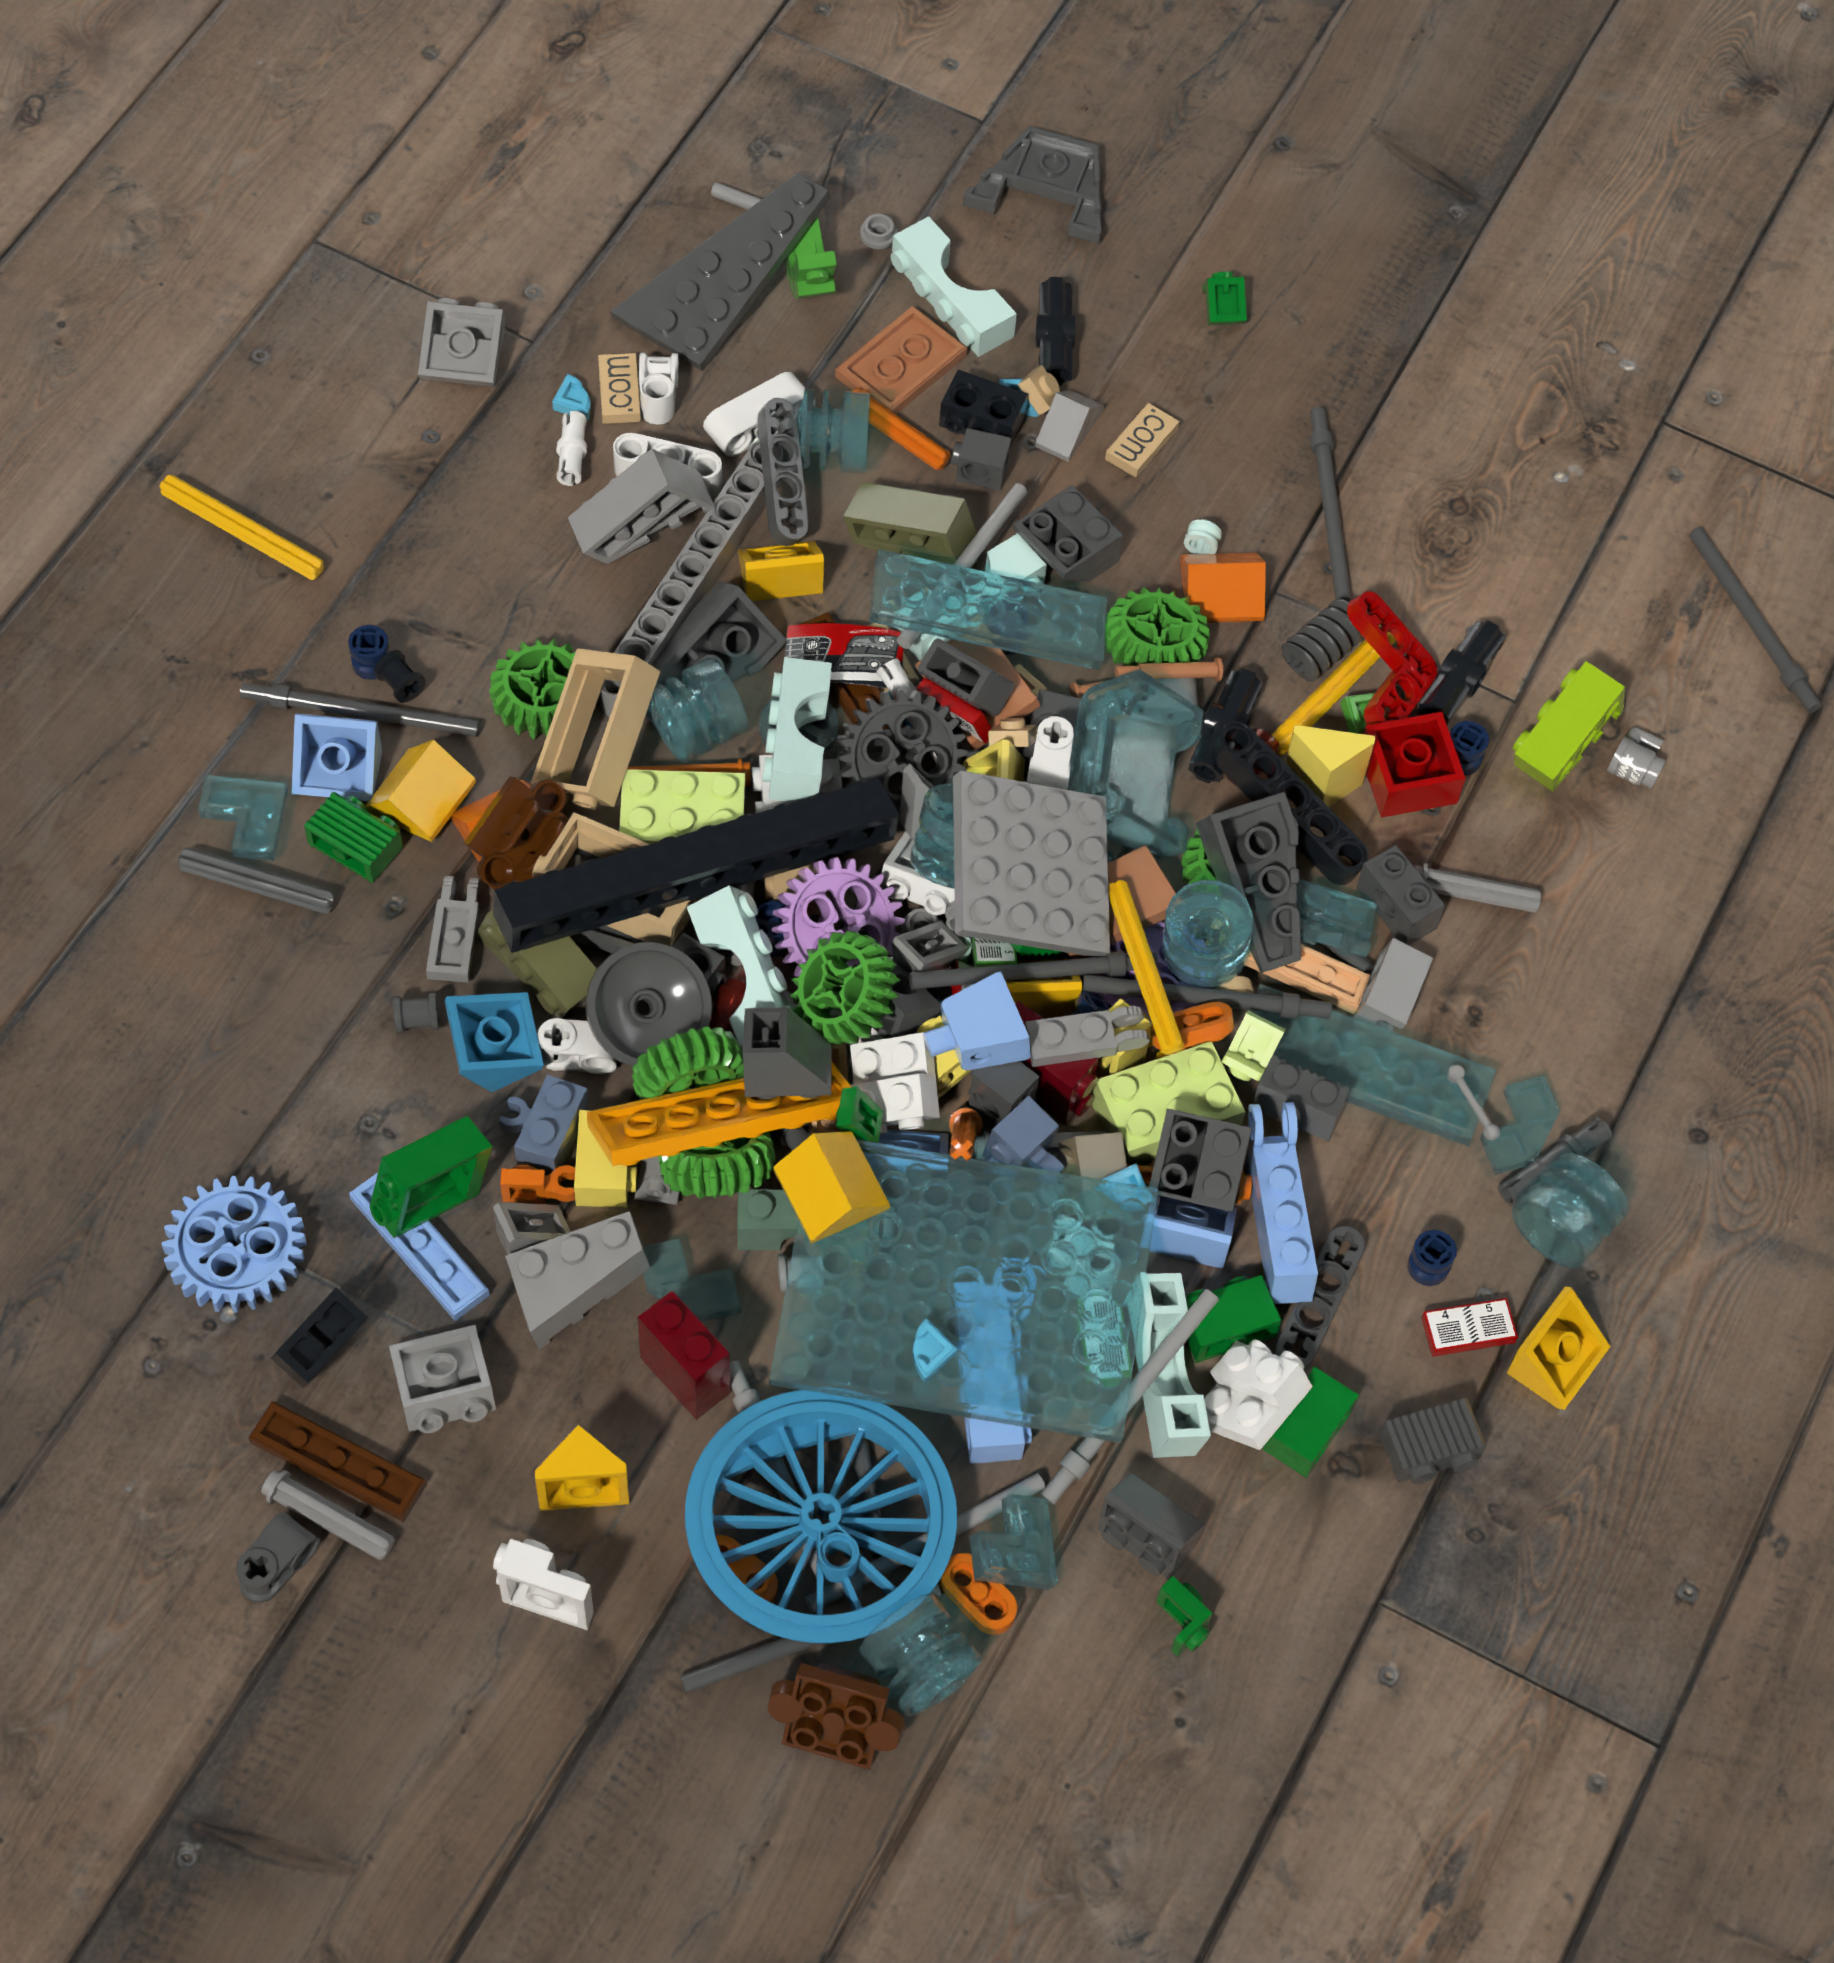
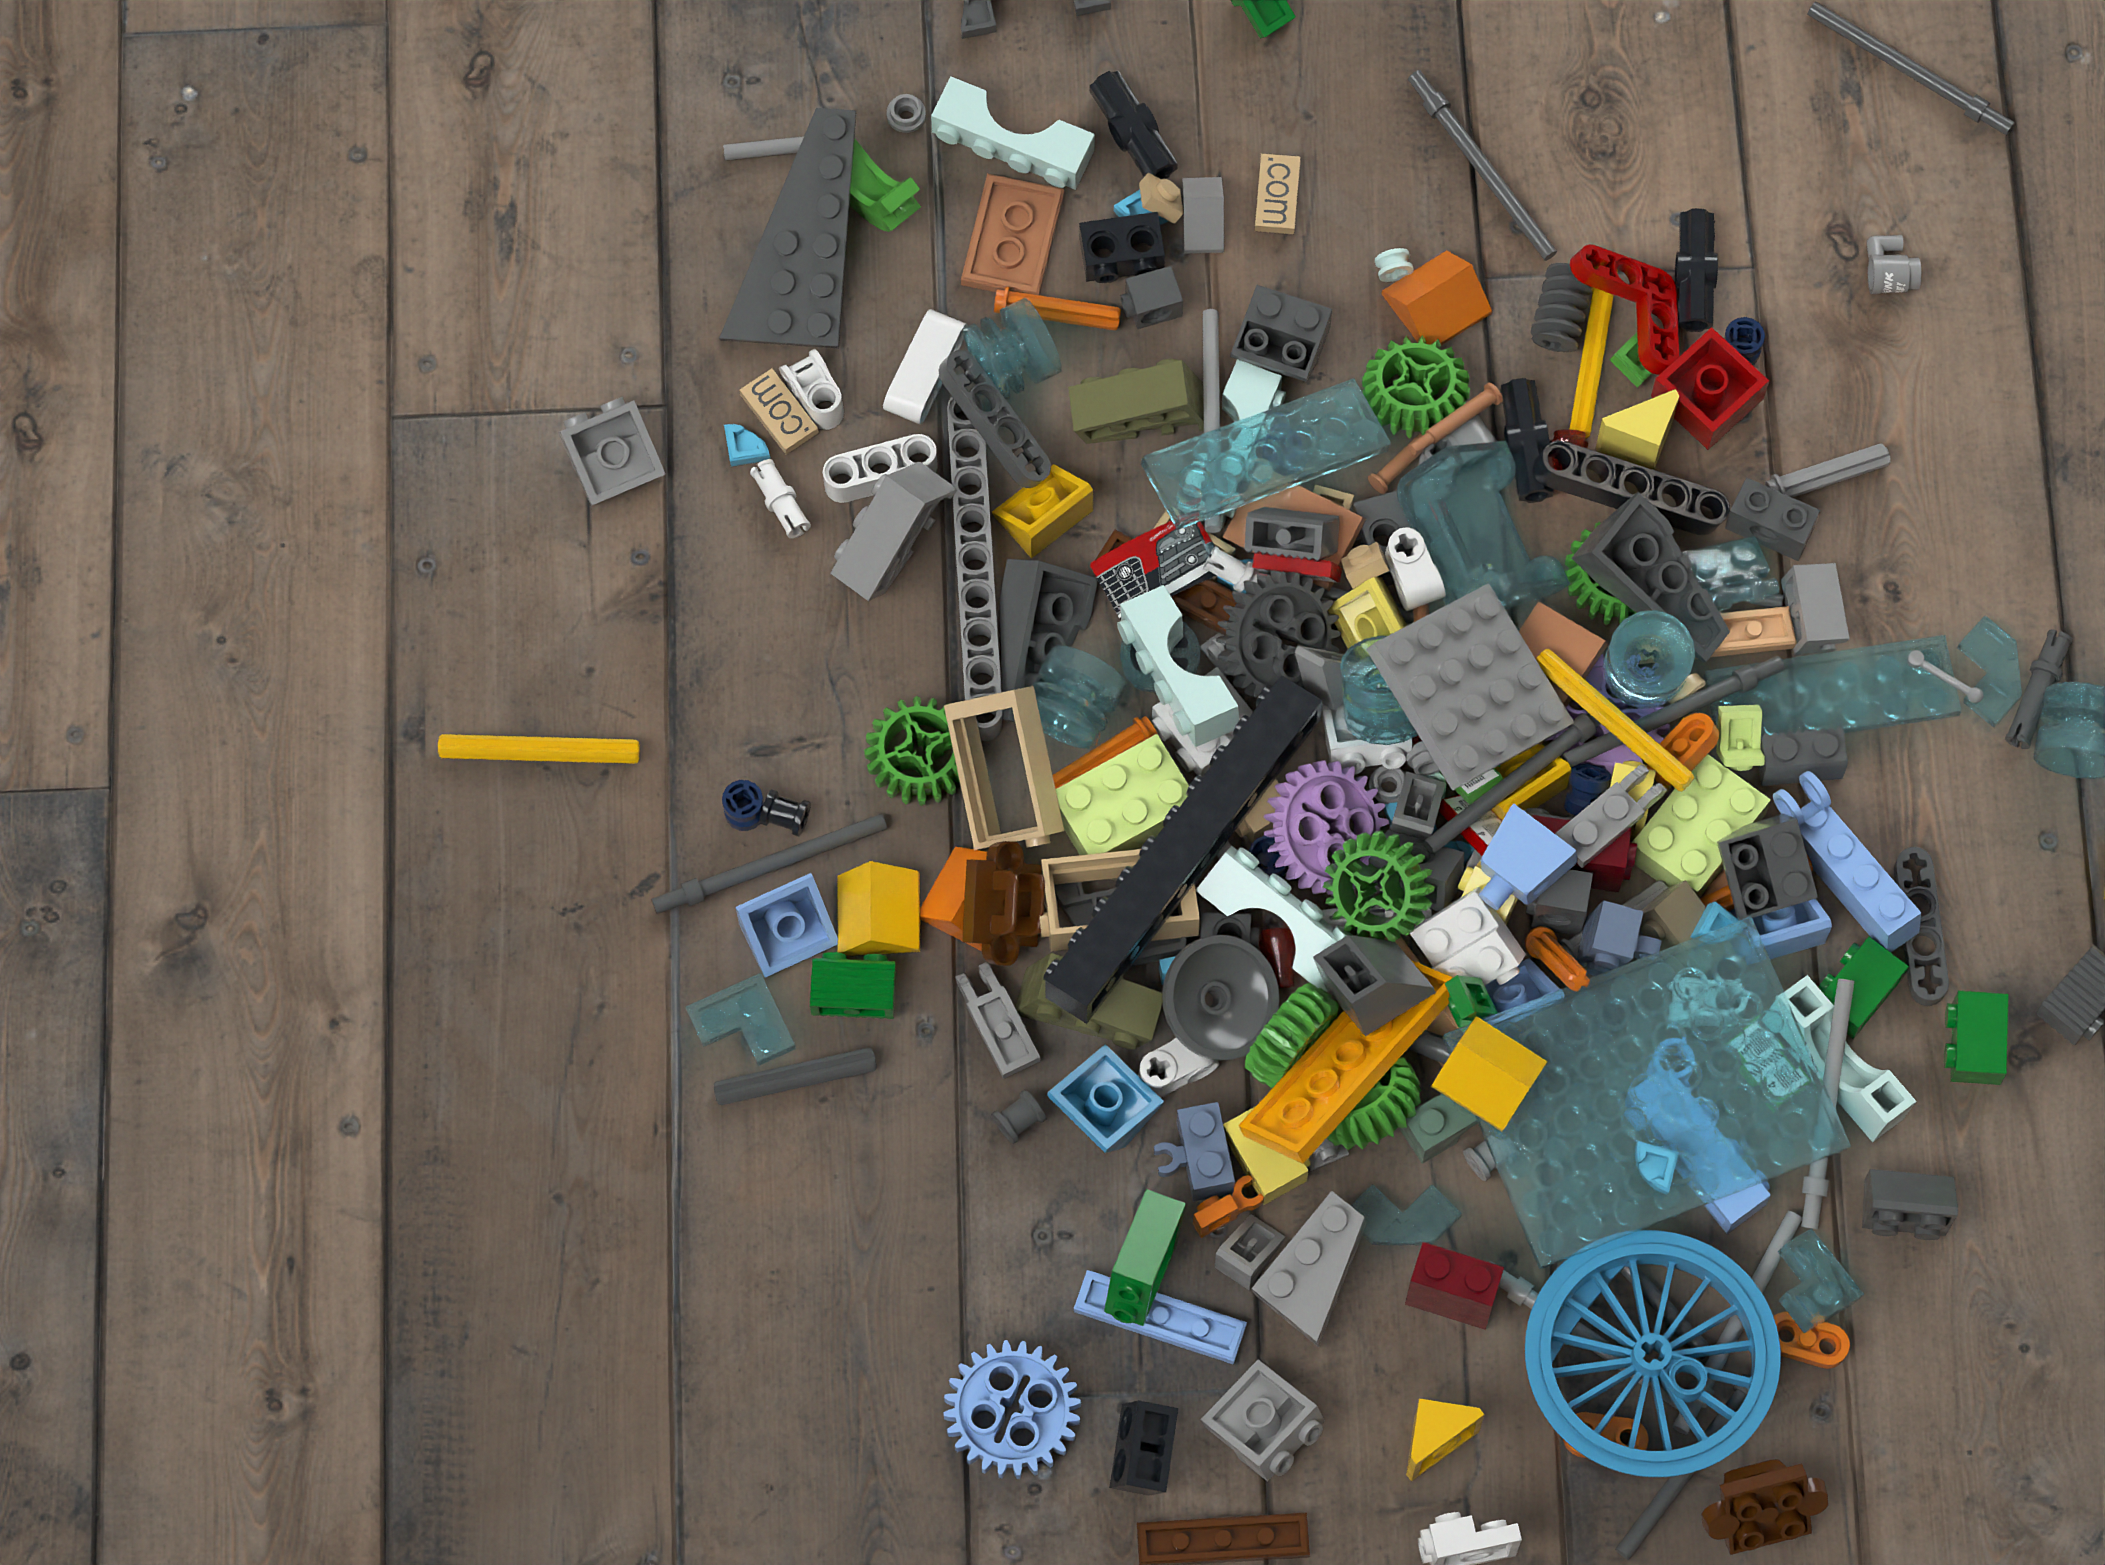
camera: 25 degrees left, 10 degrees up
(915, 1647) = (1802, 1420): clear light blue wheel -> none
(1187, 1609) = (1974, 1252): green bracket -> none
(1254, 1392) = (1924, 1041): white plate -> none
(1426, 1265) = (1984, 842): dark blue wheel -> none
(1469, 1327) = (2053, 877): tile -> none
(1569, 725) = (1819, 273): lime wedge -> none

